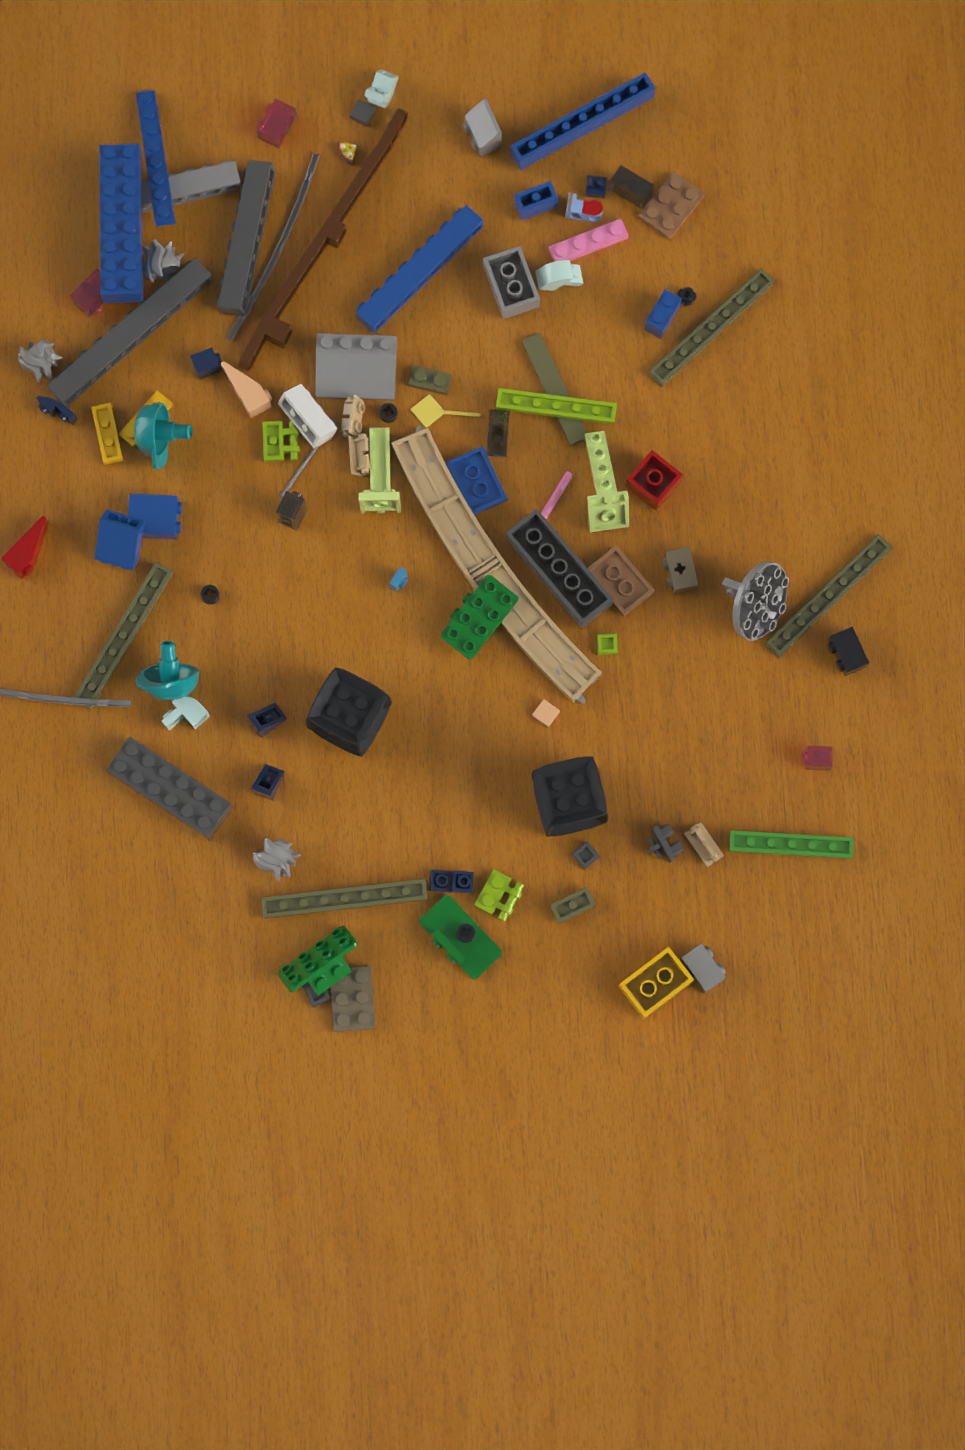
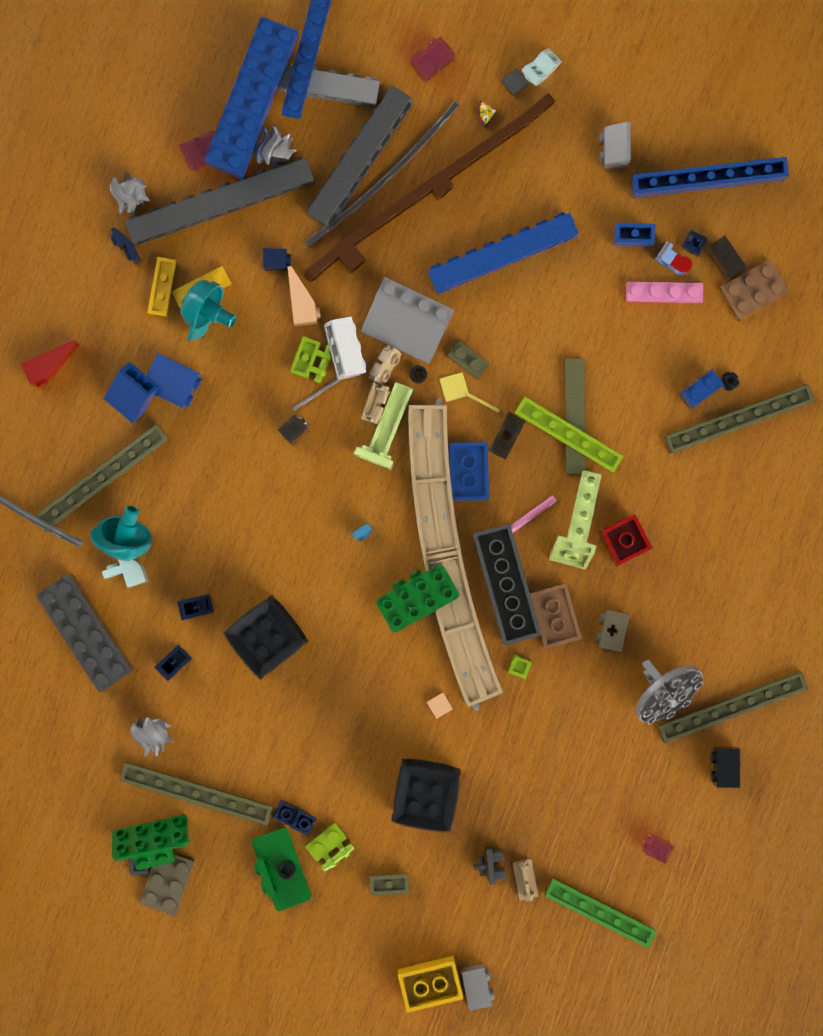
camera: 20 degrees right, 10 degrees up
(214, 590) = (188, 476): black bush -> none
(511, 282) = (578, 302): light grey brick -> none
(558, 274) = (624, 313): light aqua brick -> none
(585, 855) = (419, 844): dark grey tile -> none

